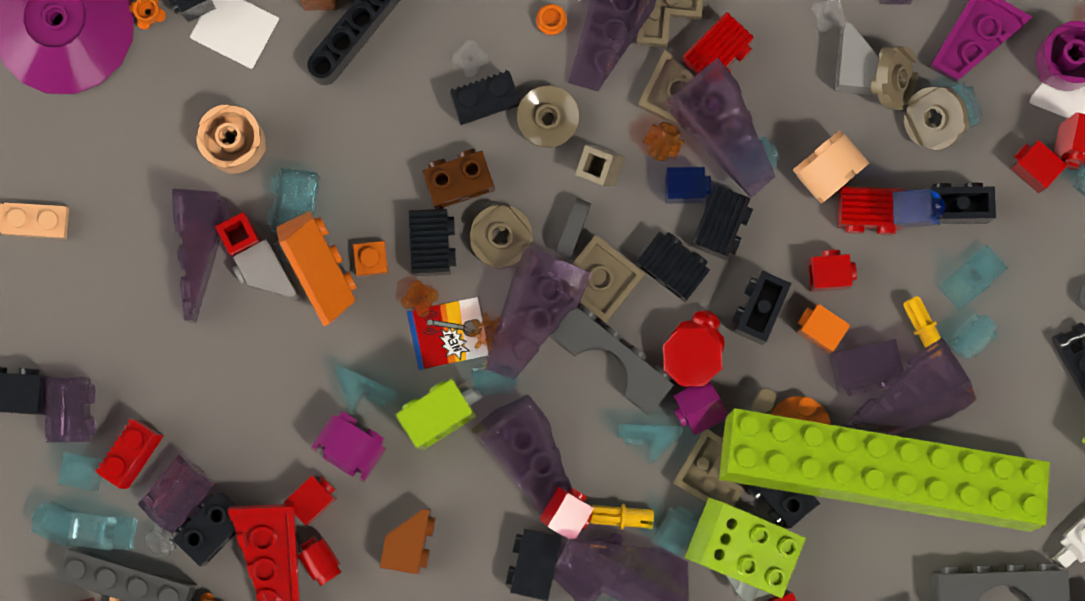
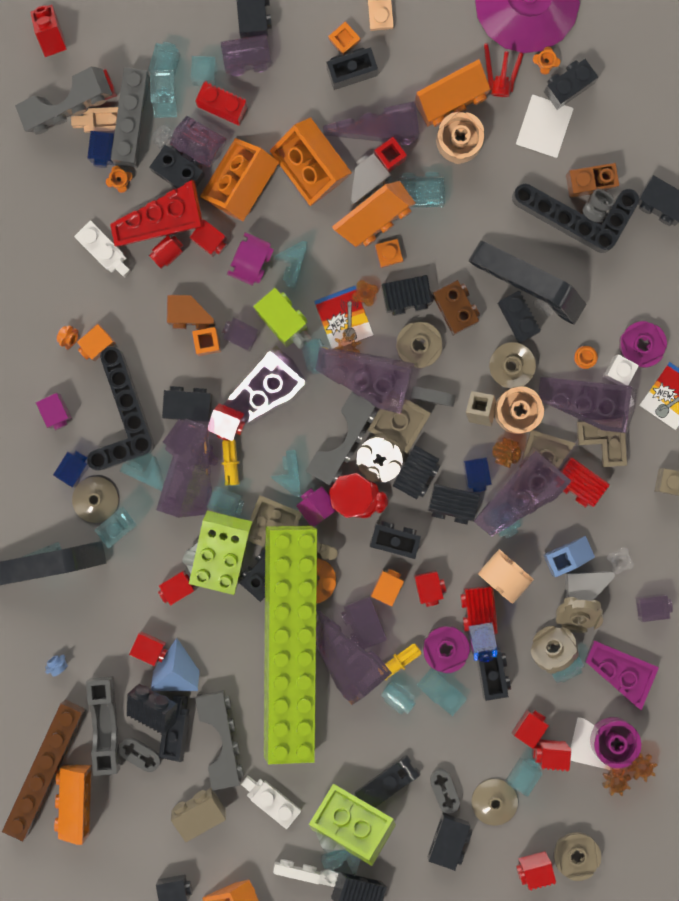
camera: 75 degrees right, 5 degrees up
(70, 274) = (344, 38): none -> orange plate
(112, 269) = (352, 68): none -> black brick
(170, 74) = (501, 85): none -> red plant
(171, 139) = (452, 93): none -> orange slope
(228, 345) = (310, 161): none -> orange slope
(236, 445) = (239, 179): none -> orange slope
(448, 476) = (240, 334): none -> clear purple brick
(452, 523) = (206, 341): none -> orange brick
(463, 38) = (530, 279): none -> black beam
(603, 99) = (531, 405): none -> light nougat brick
(662, 321) = (374, 470): none -> plate
(815, 81) = (569, 556): none -> medium blue slope
(925, 246) = (458, 654): none -> magenta plate

